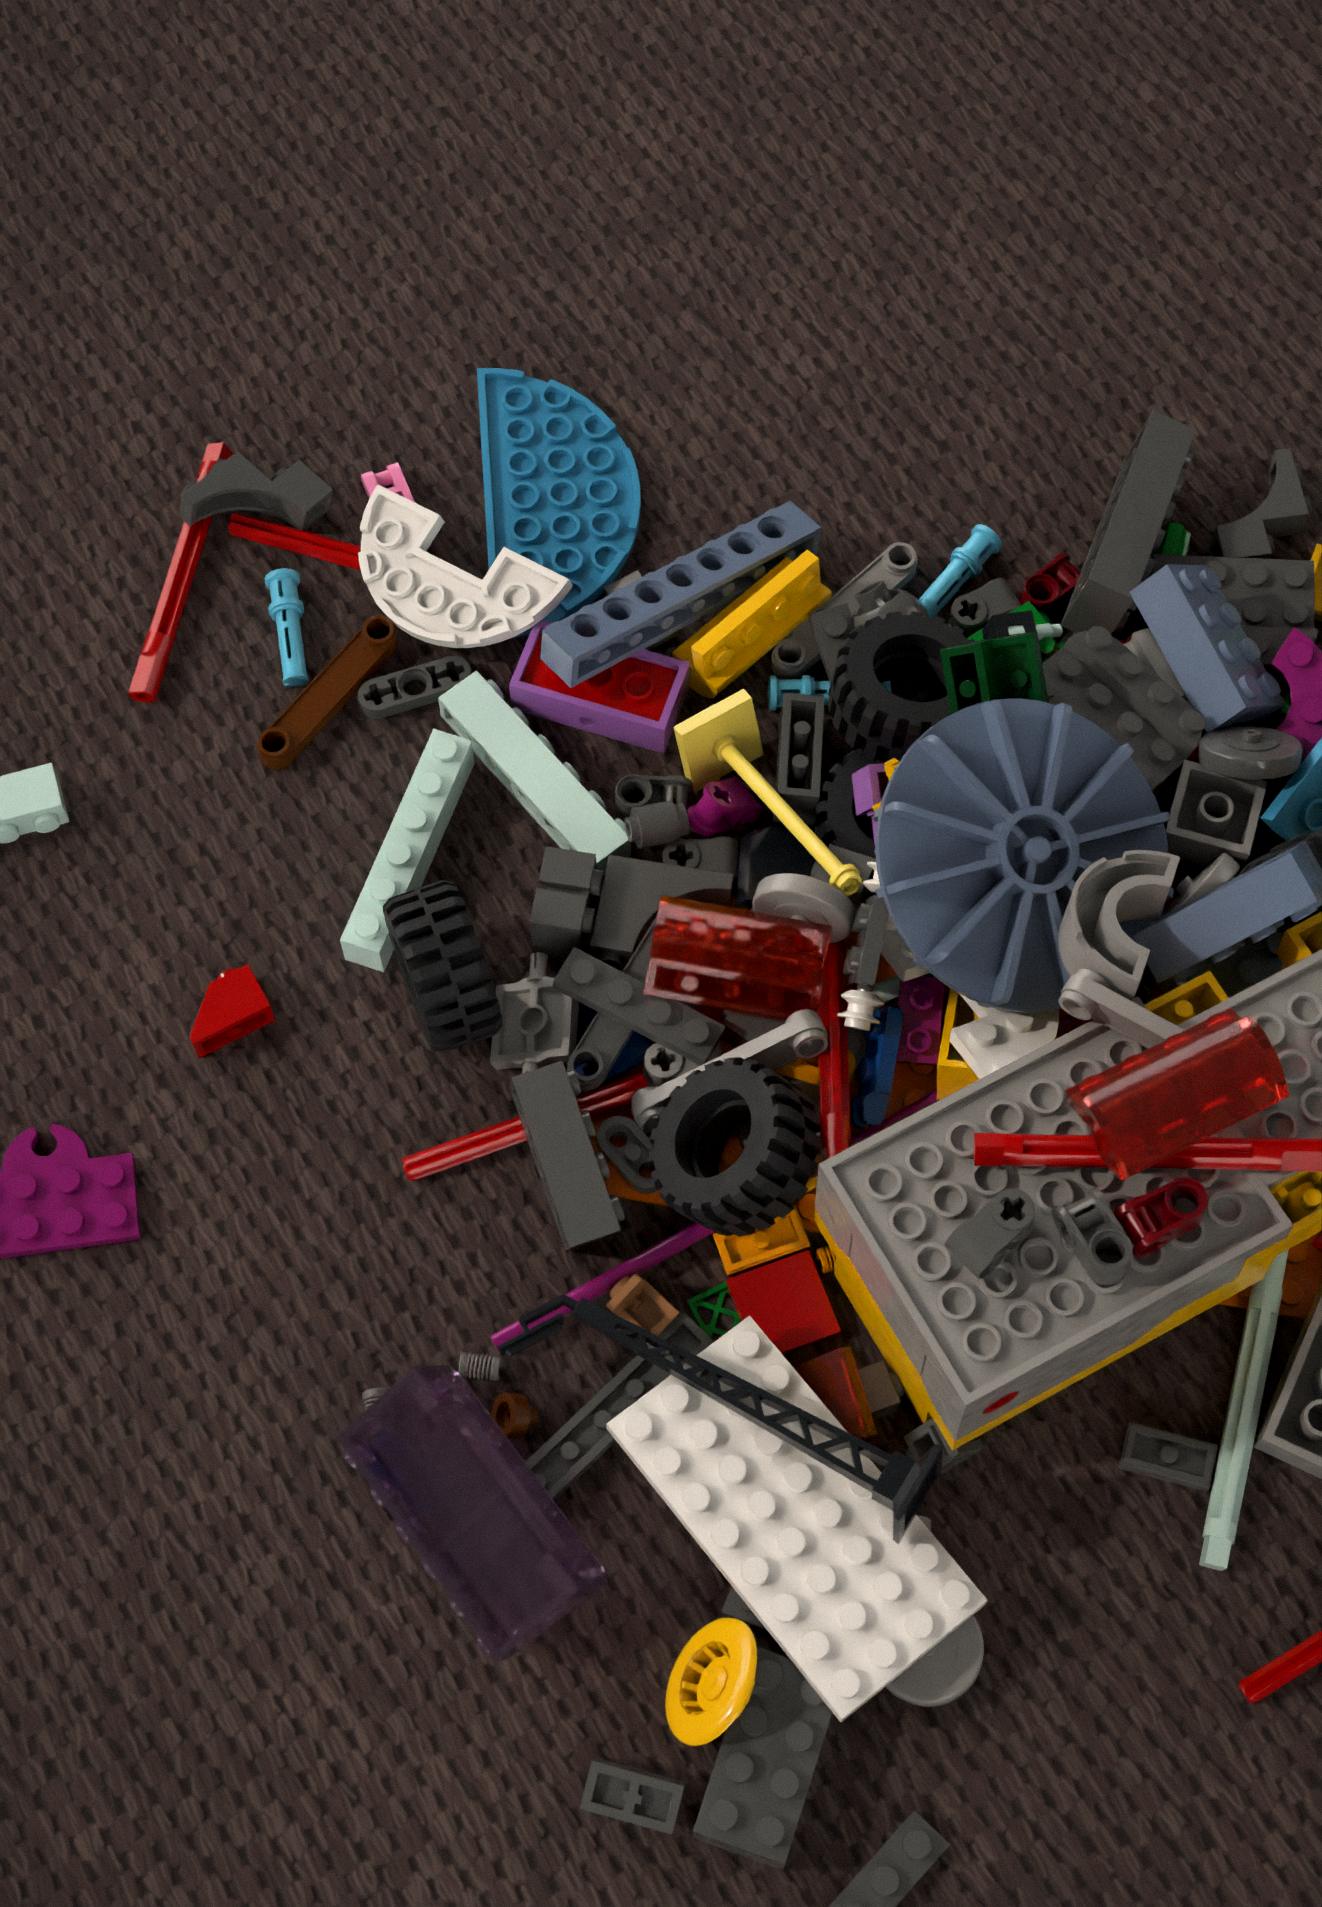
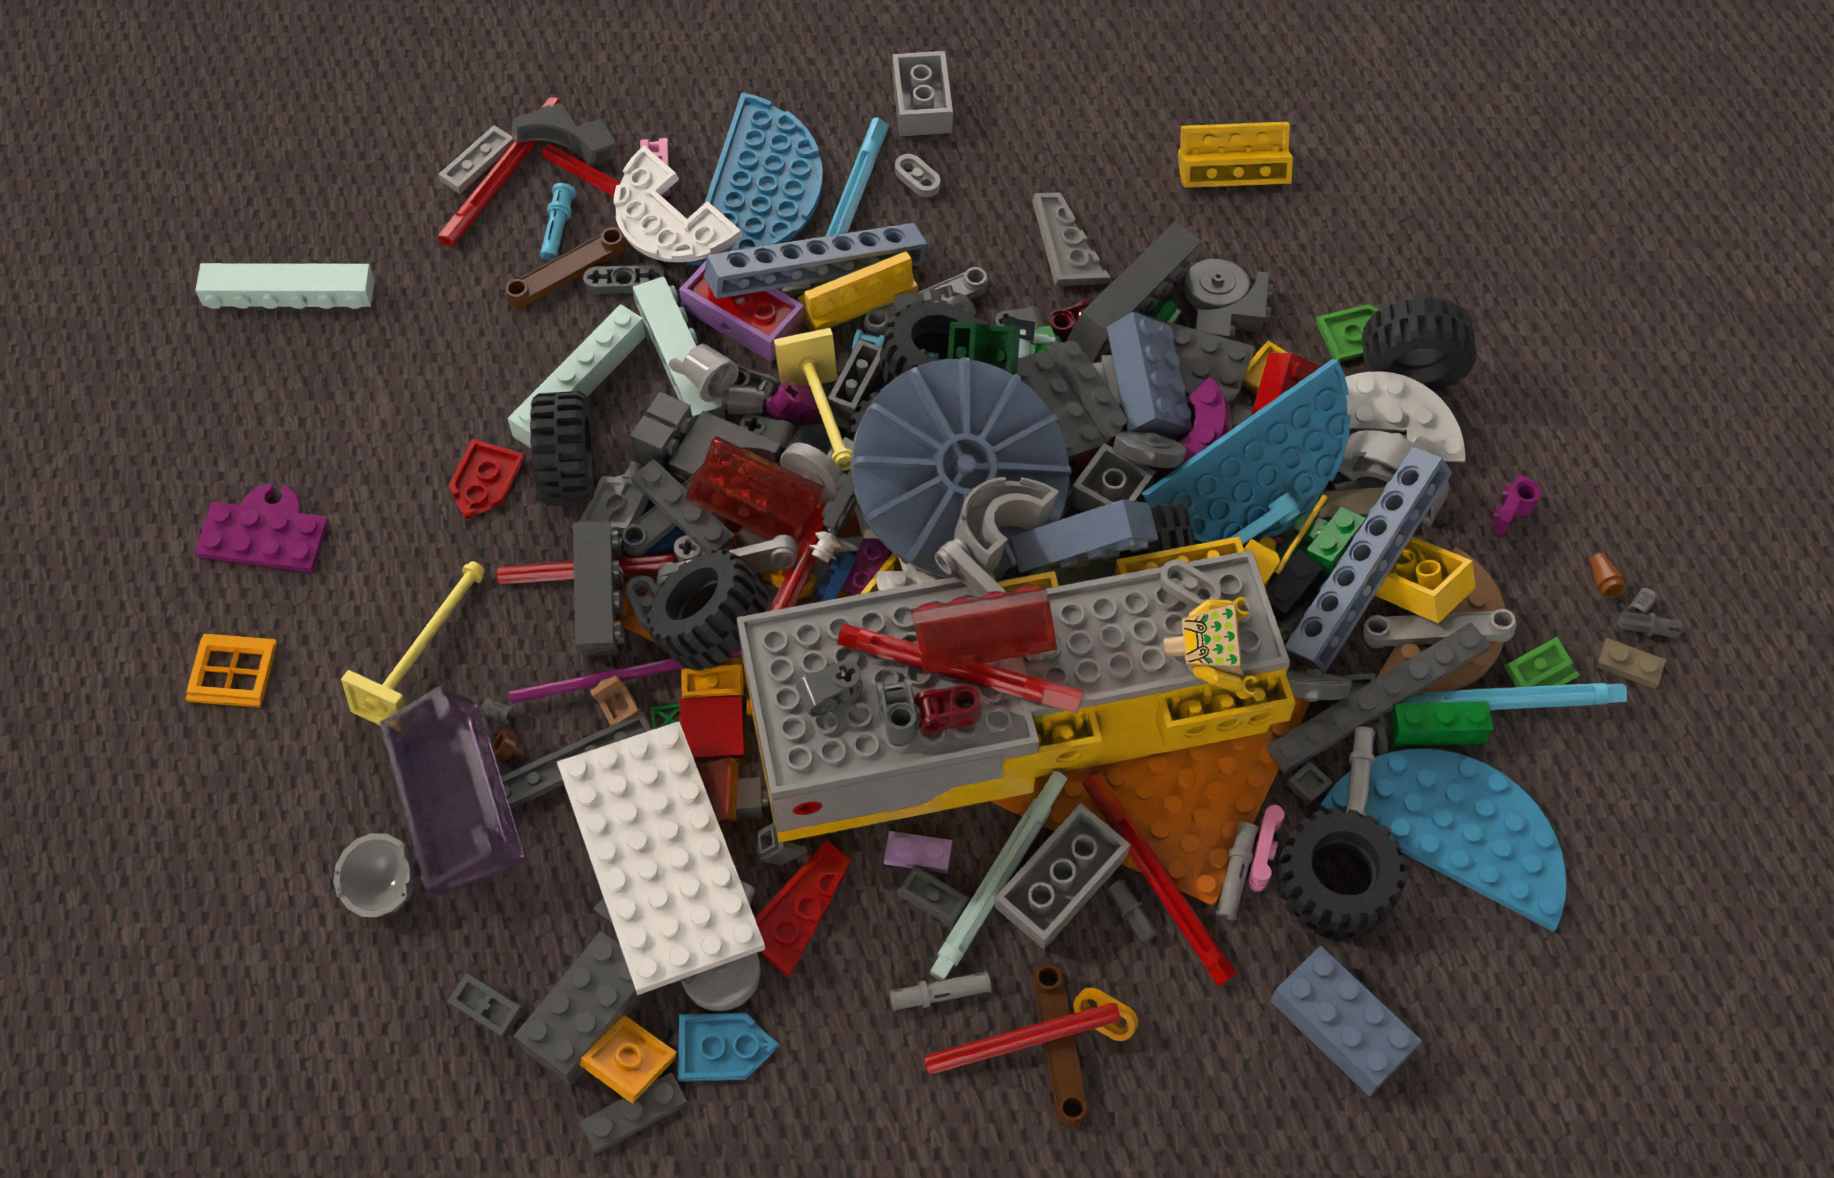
camera: 15 degrees right, 5 degrees down
(89, 1454) = (227, 696): none -> light orange piece
(139, 563) = (476, 159): none -> light grey plate
(230, 1010) = (422, 446): red slope -> none
(317, 1405) = (380, 701): none -> light yellow tile
(331, 1031) = (484, 477): none -> red tile
(410, 1660) = (374, 875): none -> light grey cylinder
(596, 796) = (707, 371): none -> light grey hat
(683, 457) = (858, 178): none -> medium azure piece
(711, 1681) = (565, 947): yellow wheel -> none
(729, 307) = (922, 93): none -> light grey brick
(765, 427) = (919, 176): none -> light grey plate
(852, 1811) = (628, 1059): none -> light orange plate
(901, 1484) = (729, 851): black piece -> none
(965, 564) = (1020, 293): medium azure pin -> none
(965, 1753) = (721, 1047): none -> dark azure tile
(998, 475) = (1065, 245): none -> light grey wing
(998, 1523) = (799, 907): none -> red wing
(1123, 1399) = (918, 851): none -> lavender plate
(1182, 290) = (1235, 154): none -> yellow brick
(1209, 1595) = (938, 991): none -> light grey pin
(1224, 483) = (1215, 284): none -> dark grey wheel

